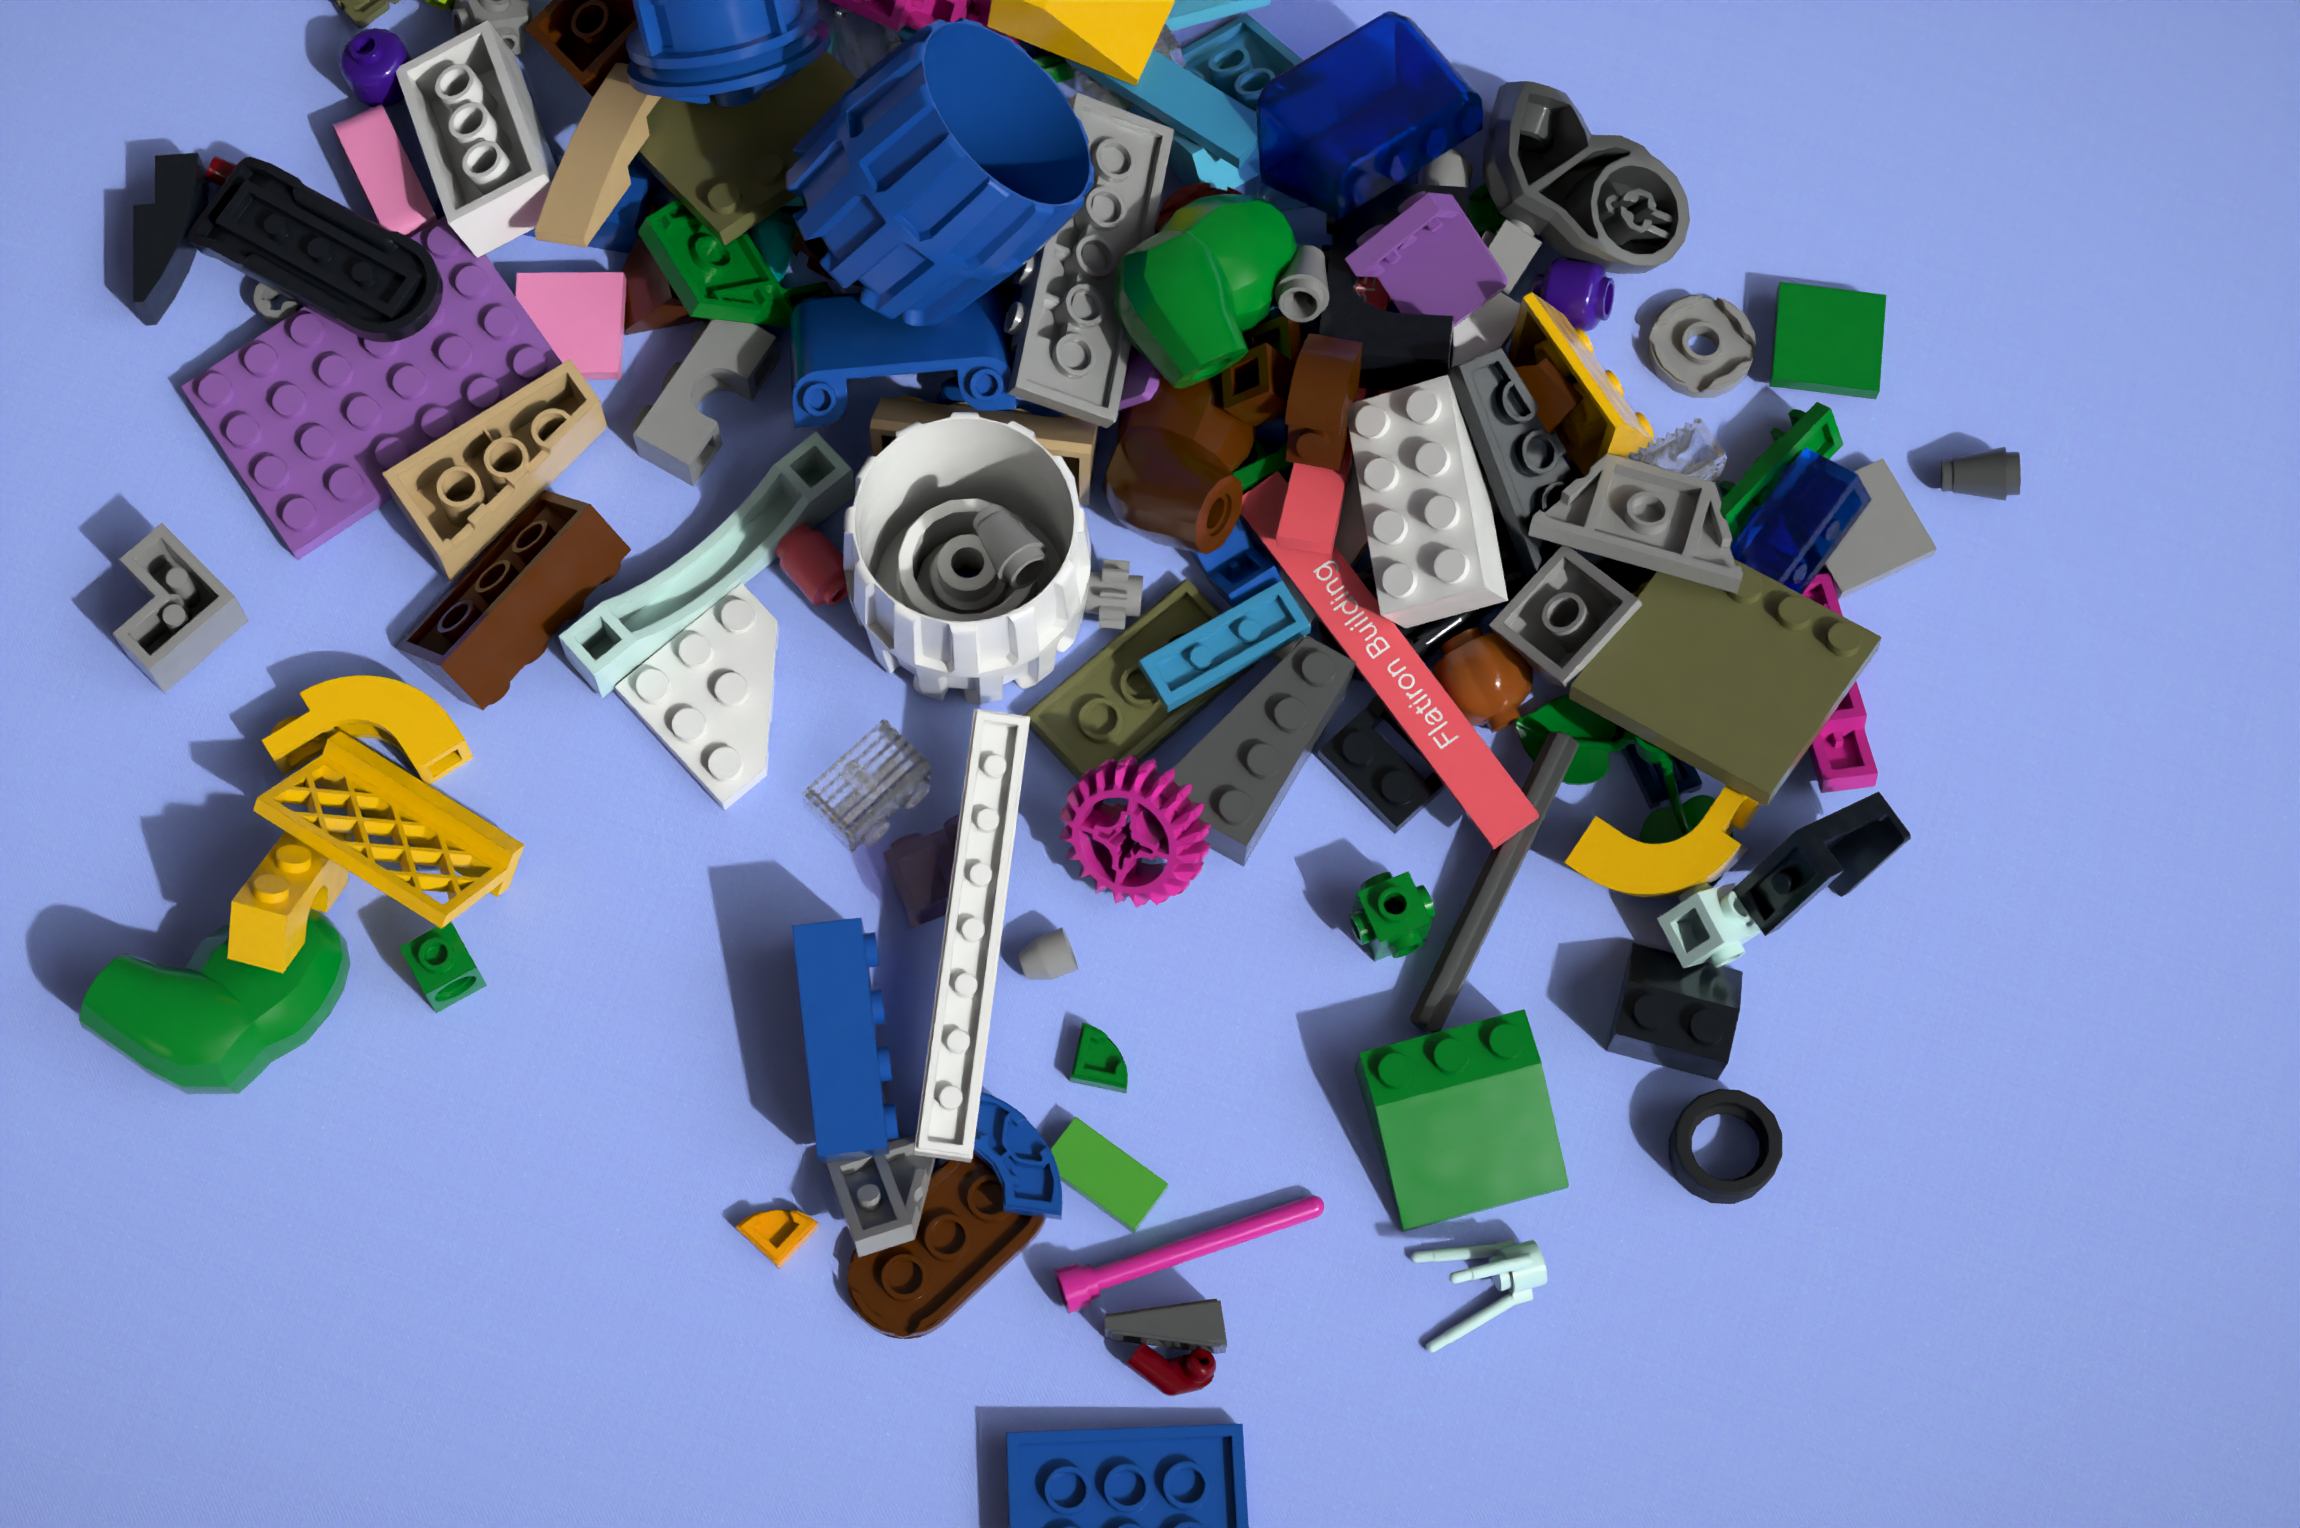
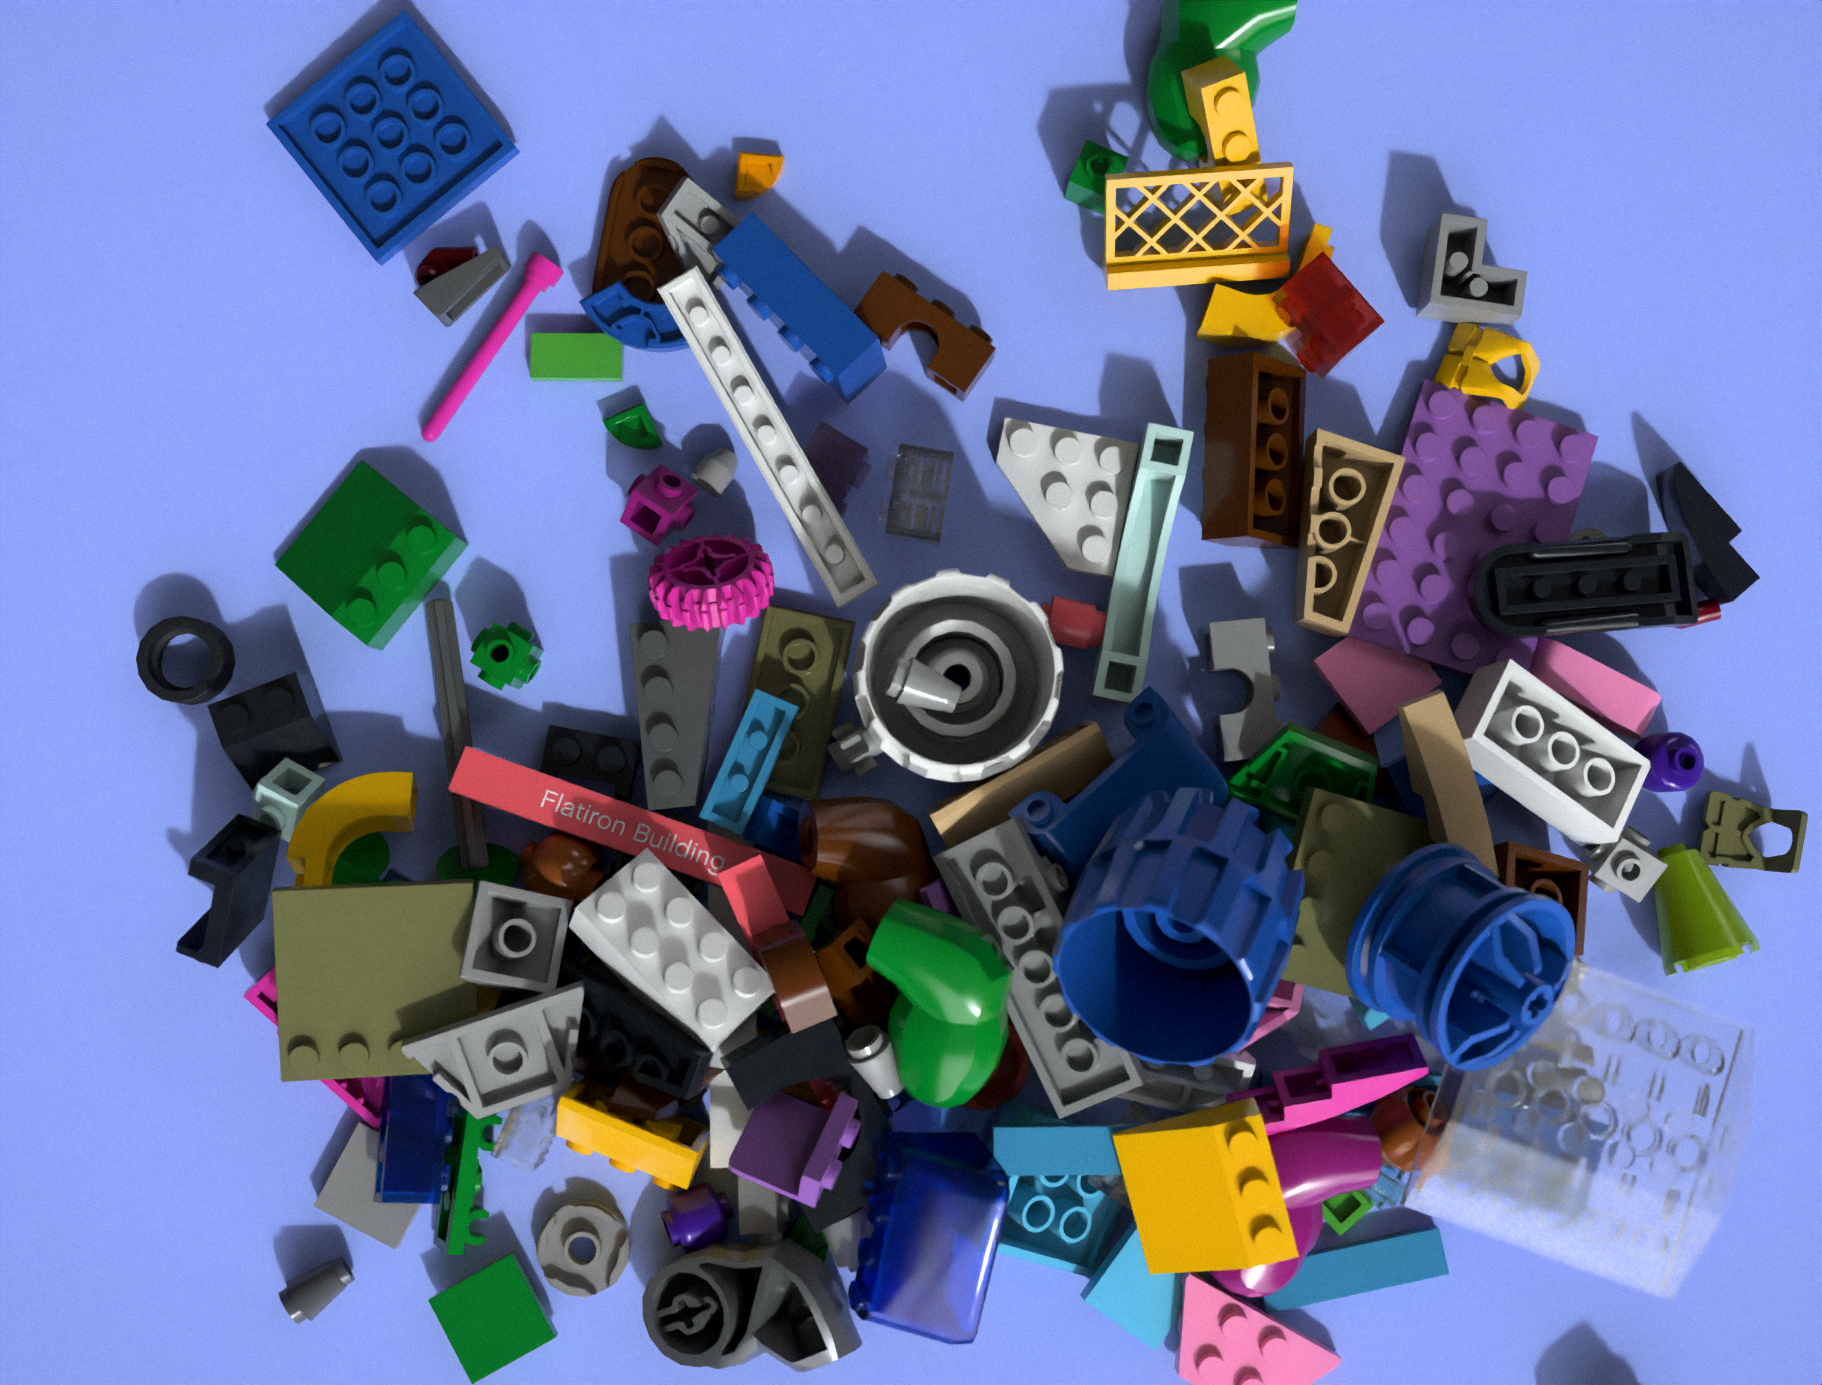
camera: 145 degrees right, 15 degrees up
(236, 538) = (1471, 359): none -> yellow piece
(341, 654) = (1327, 313): none -> clear red brick
(752, 983) = (895, 309): none -> reddish brown arch
(1131, 951) = (659, 505): none -> magenta brick
(1512, 1268) = (268, 480): light aqua plant -> none

